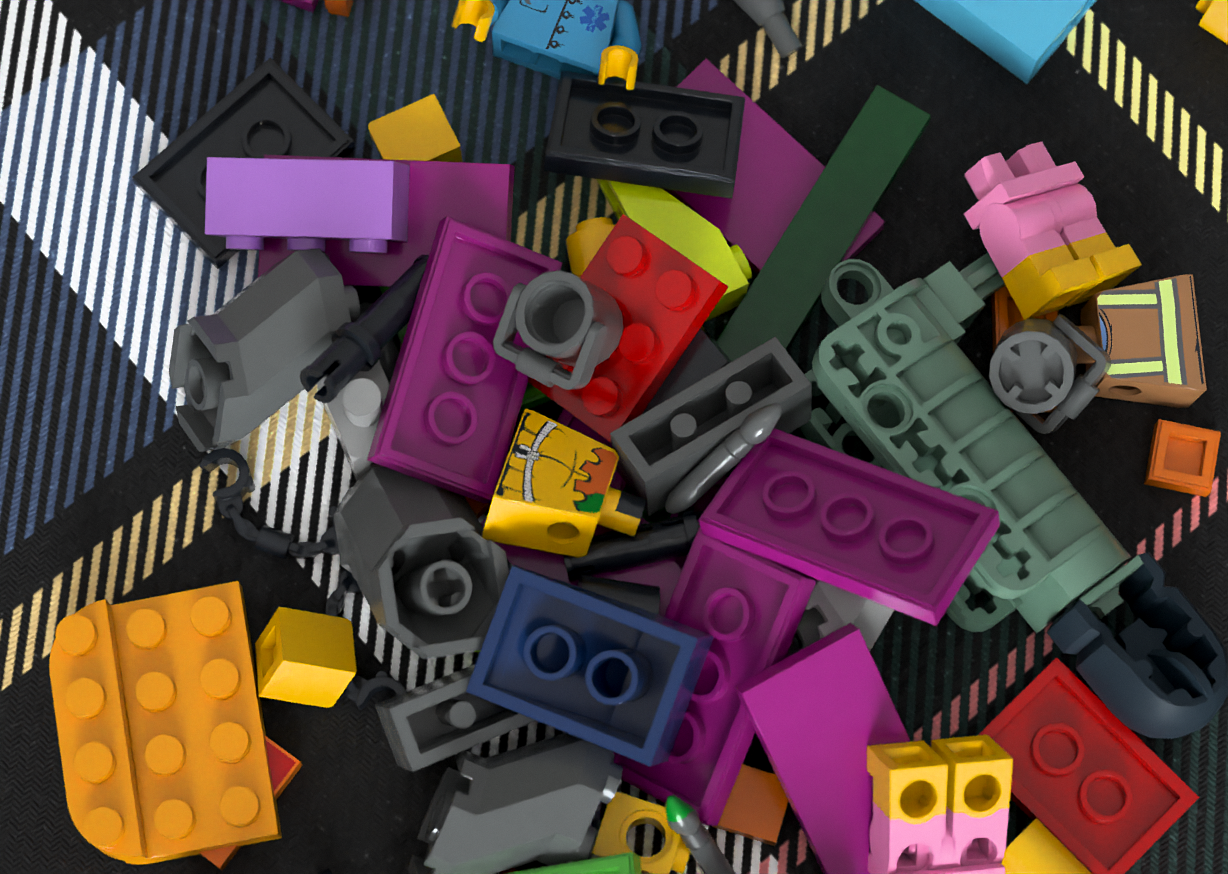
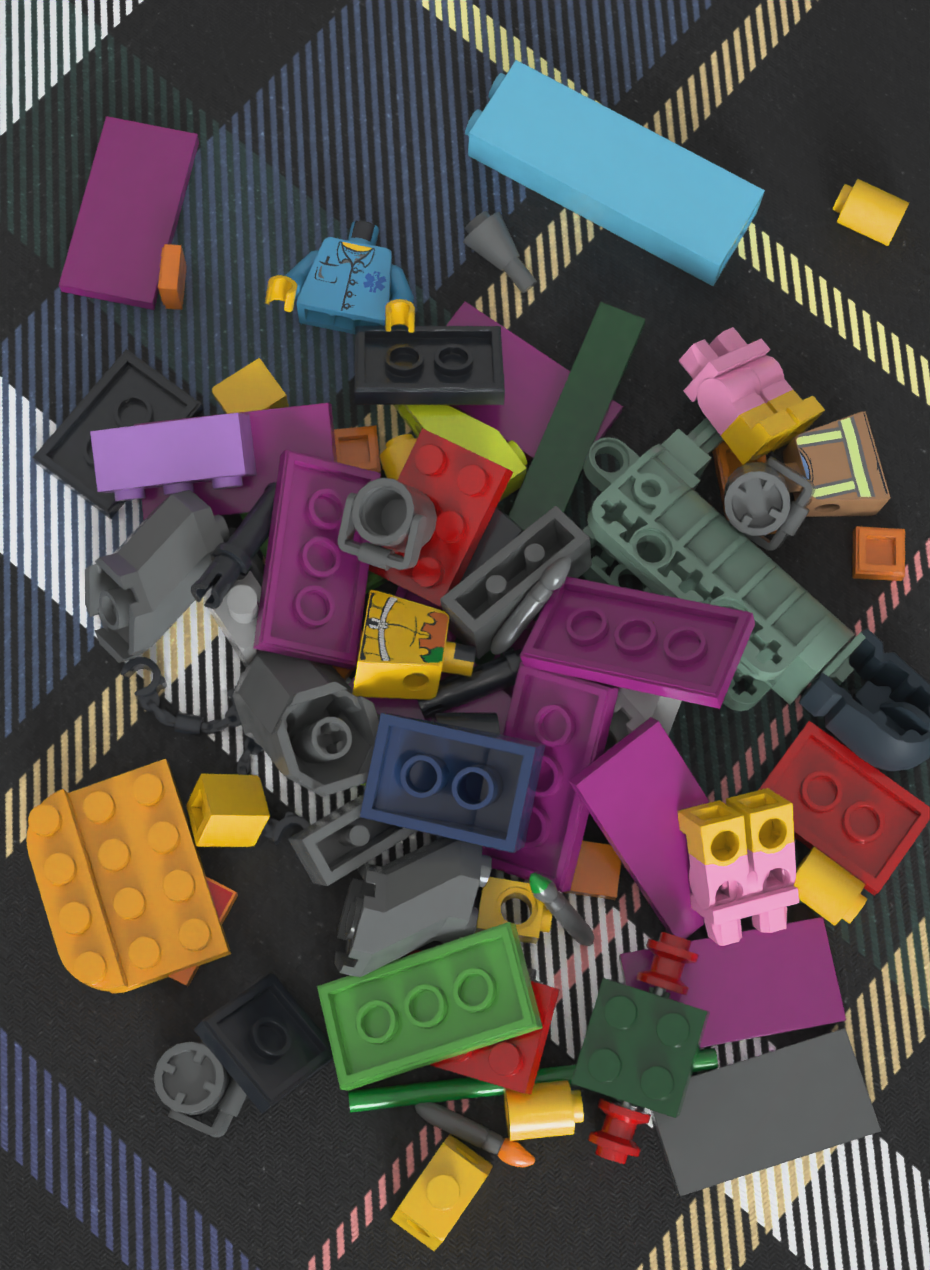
camera: 10 degrees left, 0 degrees up
(541, 226) = (358, 447): none -> orange tile

